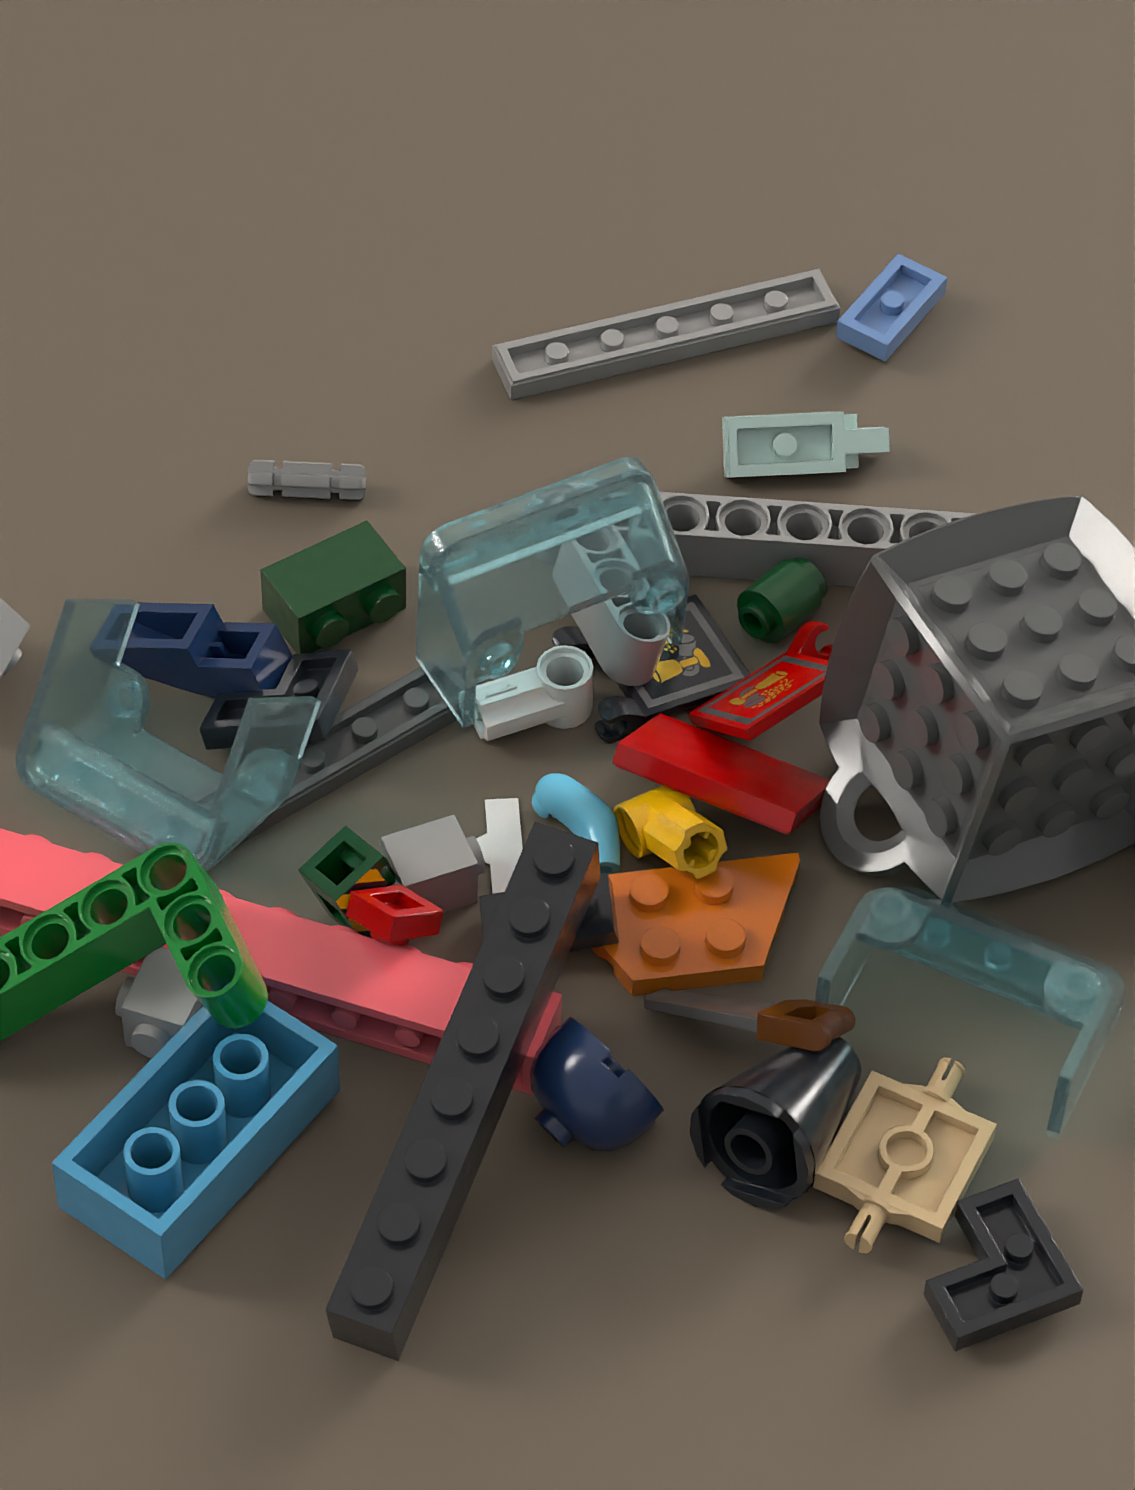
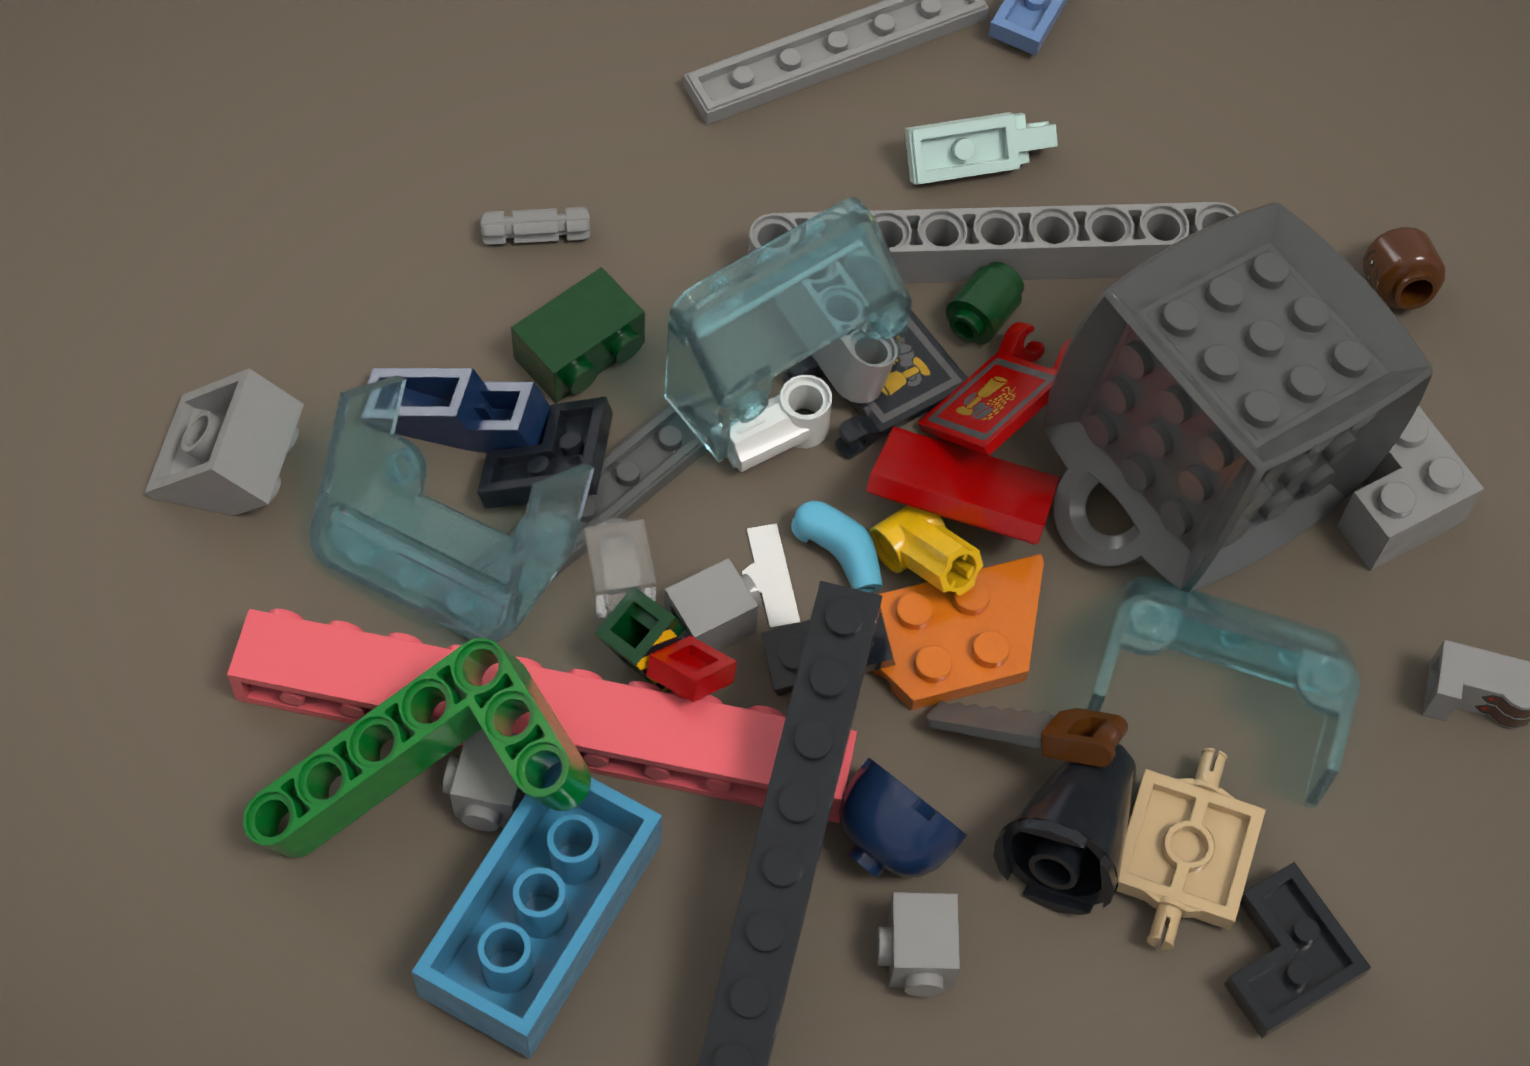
camera: 10 degrees left, 10 degrees up
(336, 800) = (616, 561): none -> clear brick
(597, 1211) = (920, 943): none -> light grey brick

